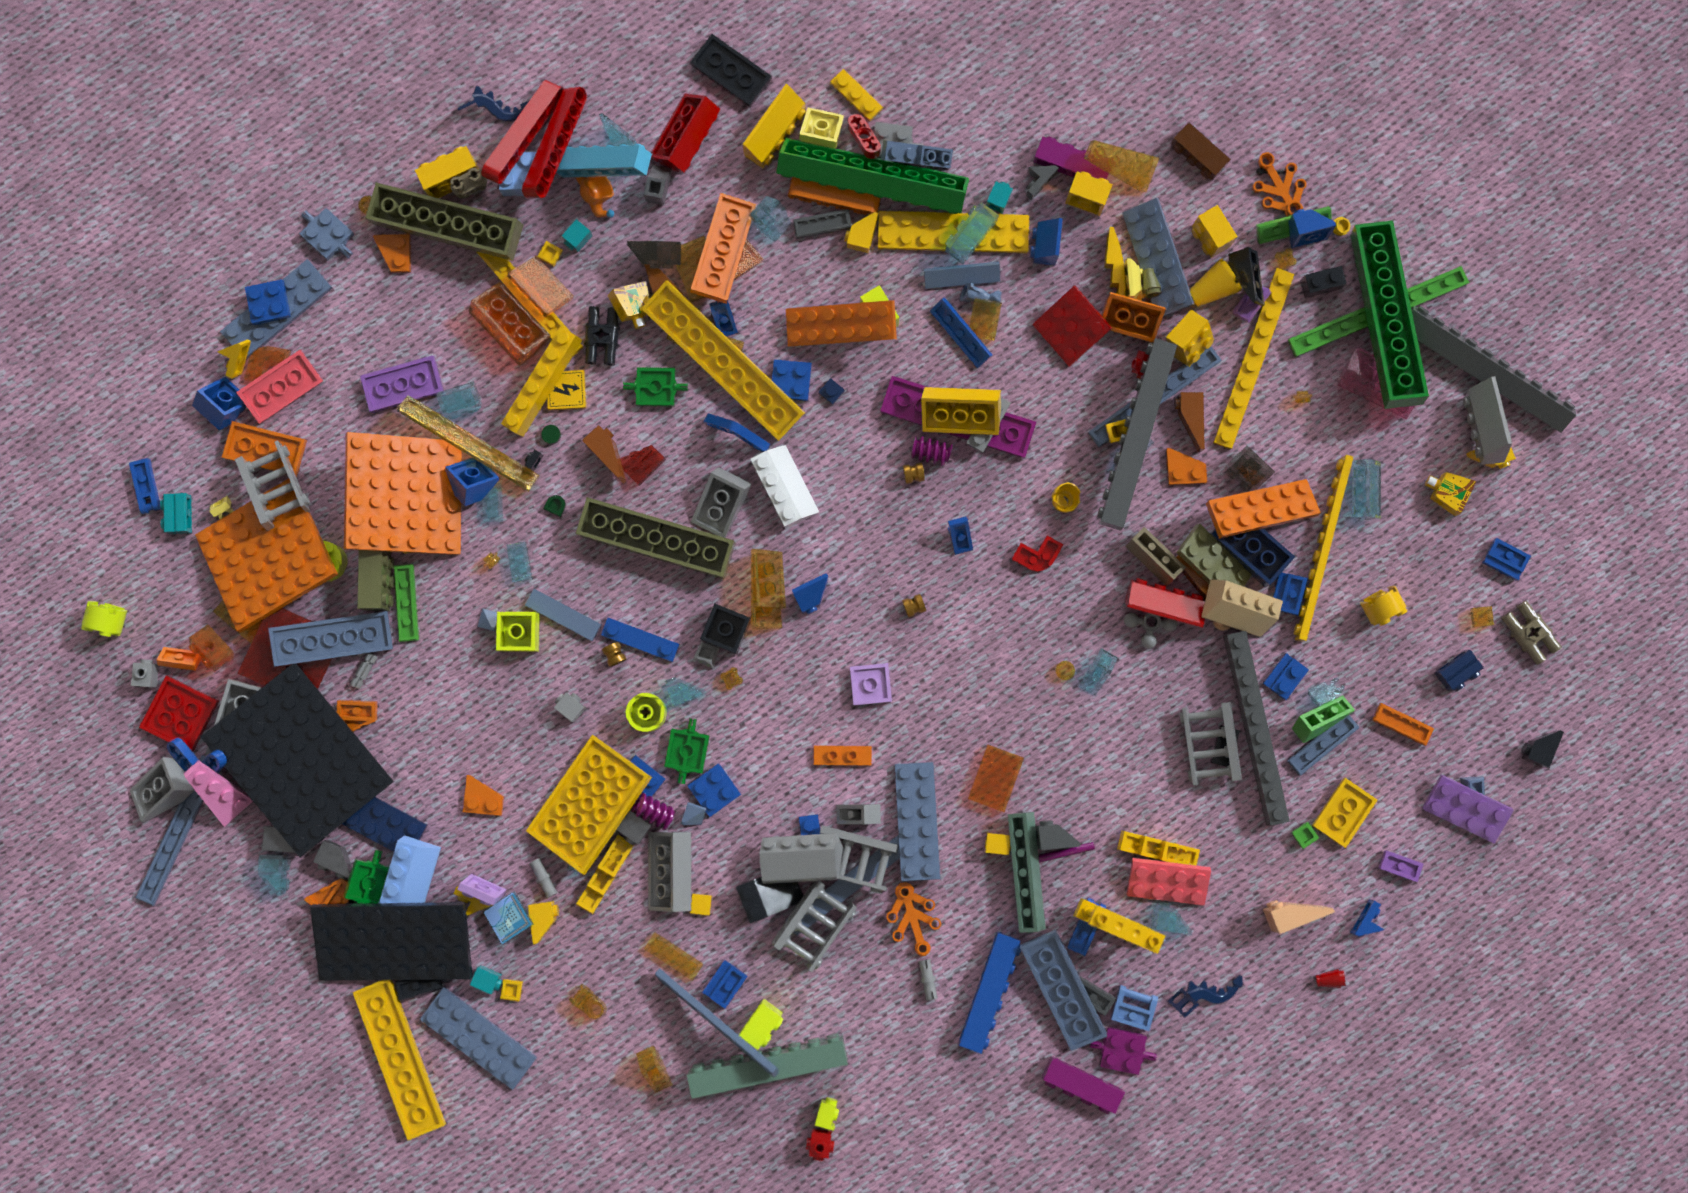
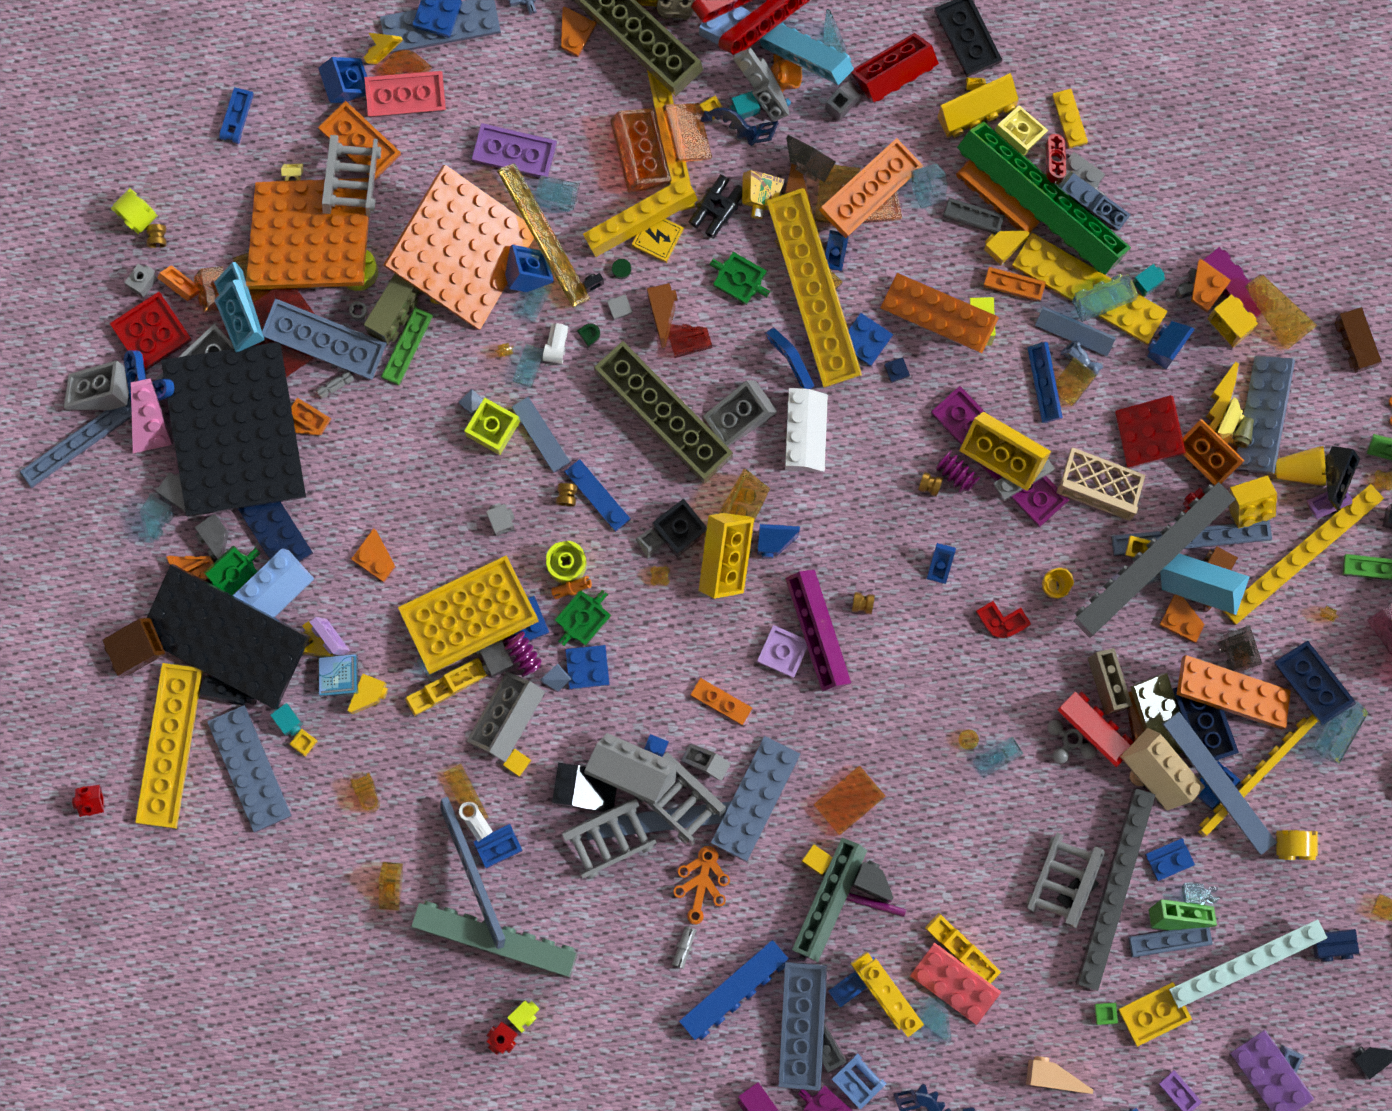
camera: 25 degrees right, 5 degrees down
(135, 628) = (156, 235): none -> pearl gold wheel
(176, 513) = (250, 154): teal brick -> none
(241, 654) = (237, 308): none -> medium azure slope
(319, 993) = (133, 647): none -> reddish brown brick
(349, 601) = (352, 310): none -> light grey bush
(357, 1145) = (88, 800): none -> red brick
(533, 534) = (556, 347): none -> white piece
(543, 878) = (389, 658): light grey pin -> none
(568, 468) = (619, 307): none -> light grey tile
(584, 209) = (764, 83): none -> light grey slope
(586, 257) = (743, 129): none -> dark blue piece
(663, 731) = (571, 587): none -> orange pin
(680, 692) = (608, 562): clear light blue slope -> none
(695, 977) = (476, 822): none -> white piece
(759, 109) = (974, 83): none -> yellow tile
(760, 1024) = (511, 898): neon yellow brick -> none
(777, 631) = (726, 555): none -> yellow slope
(889, 263) = (1014, 284): none -> orange plate
(890, 650) = (818, 630): none -> magenta brick
(1051, 174) = (1207, 285): none -> orange wing
(1056, 408) = (1100, 499): none -> tan fence
(1190, 429) = (1204, 583): none -> medium azure slope
(1213, 231) = (1329, 418): yellow brick -> none
(1293, 591) = (1219, 783): none -> sand blue tile
(1324, 462) = (1314, 683): none -> dark blue plate
(1398, 728) = (1248, 963): none -> light aqua plate
(1402, 724) = (1264, 978): orange plate -> none

